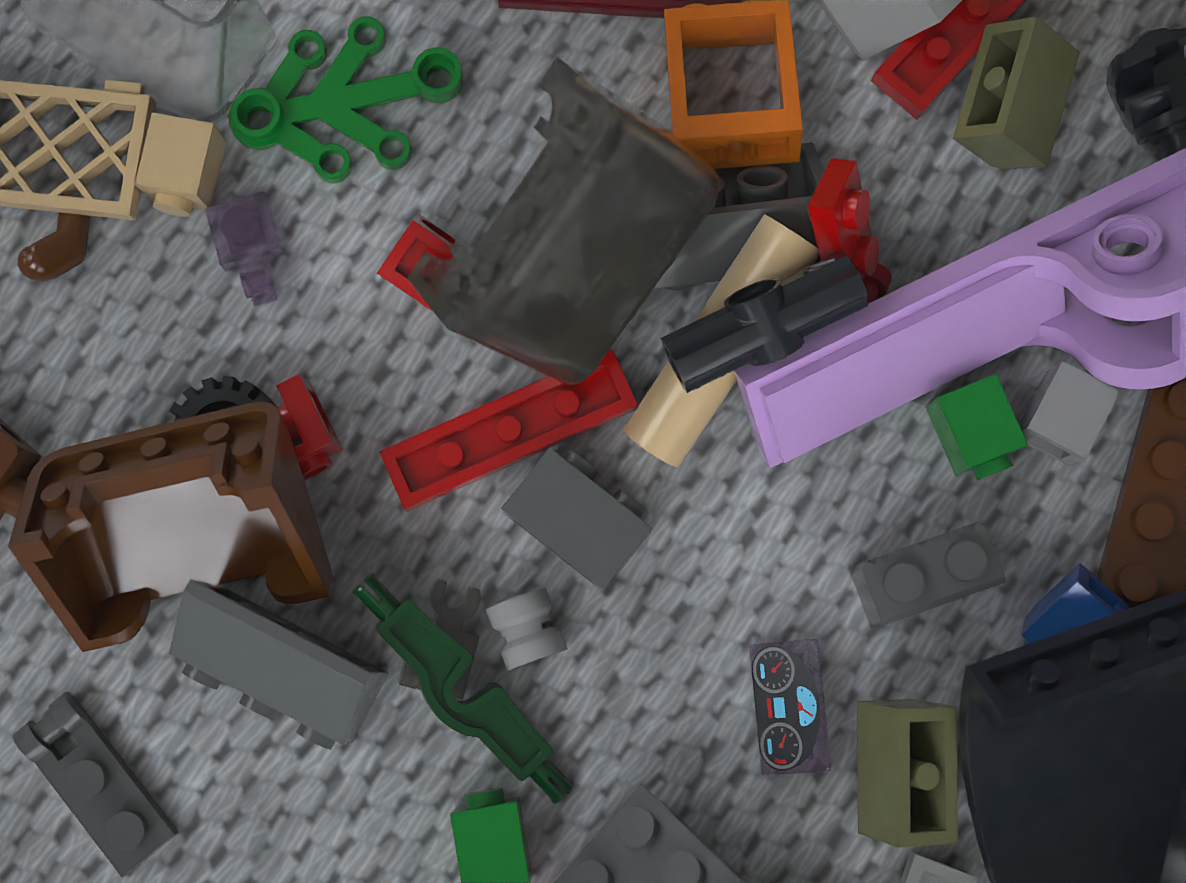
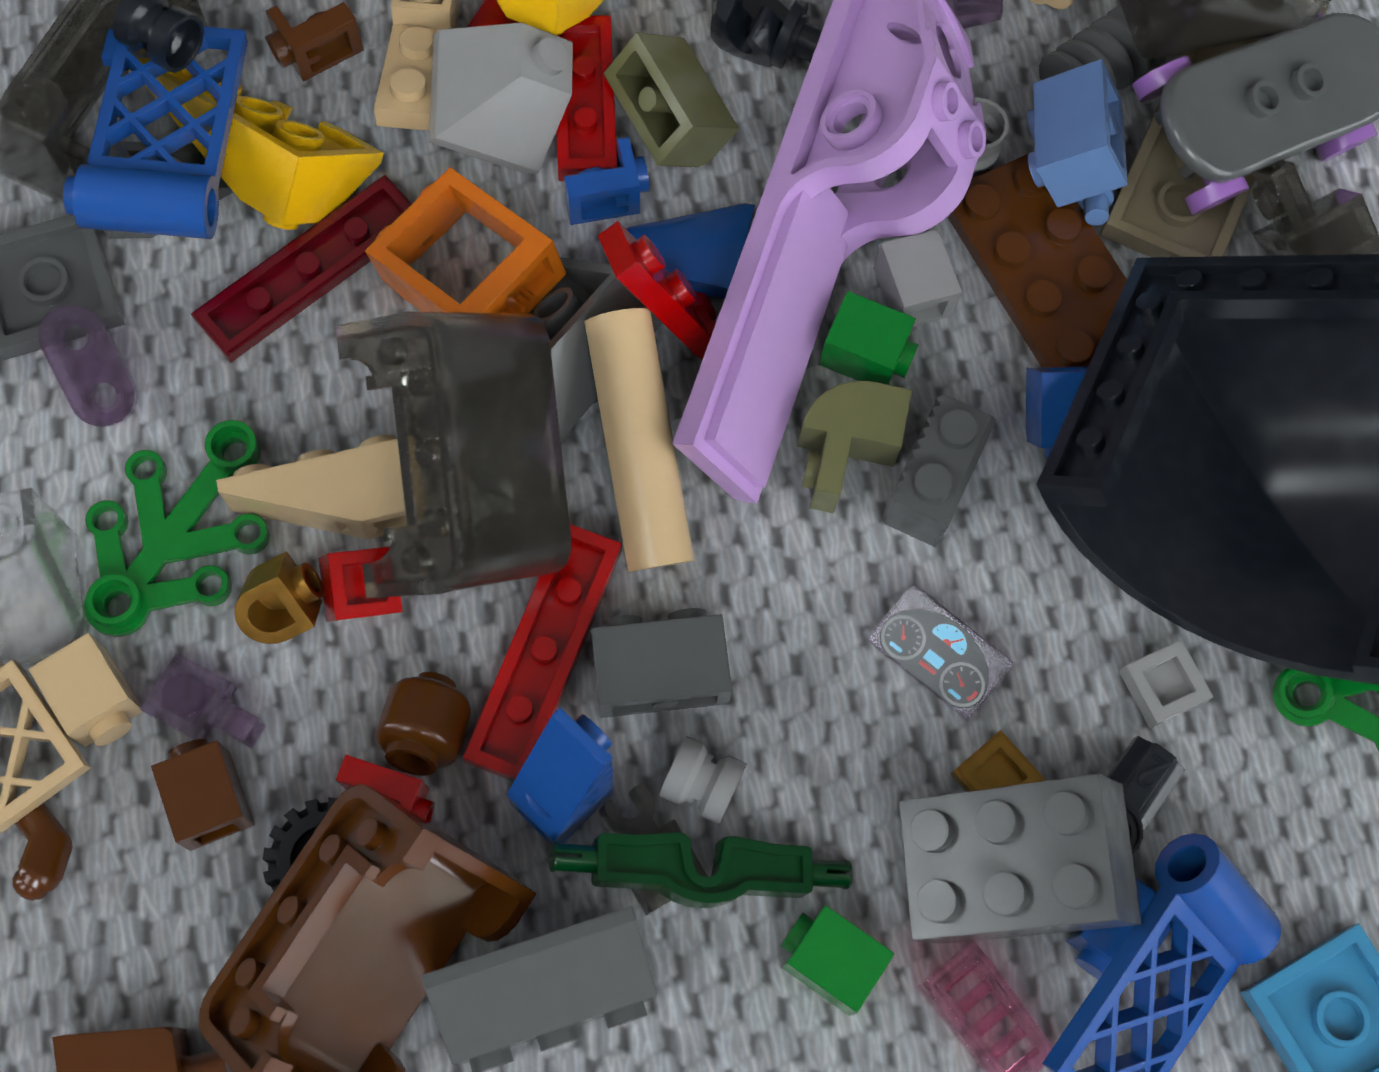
camera: 55 degrees left, 10 degrees down
(188, 307) = (201, 793): none -> reddish brown brick
(362, 219) = (279, 600): none -> pearl gold plate
(376, 401) = (423, 723): none -> reddish brown head
(423, 537) = (564, 777): none -> blue slope
(464, 161) = (324, 490): none -> tan slope
(742, 832) = (995, 766): none -> pearl gold tile
(765, 321) = (662, 389): black piece -> none
(893, 123) = (607, 193): none -> blue bracket
(900, 475) = (850, 422): none -> olive brick
(907, 772) = (1064, 613): olive brick -> none
(918, 227) = (702, 245): none -> blue slope

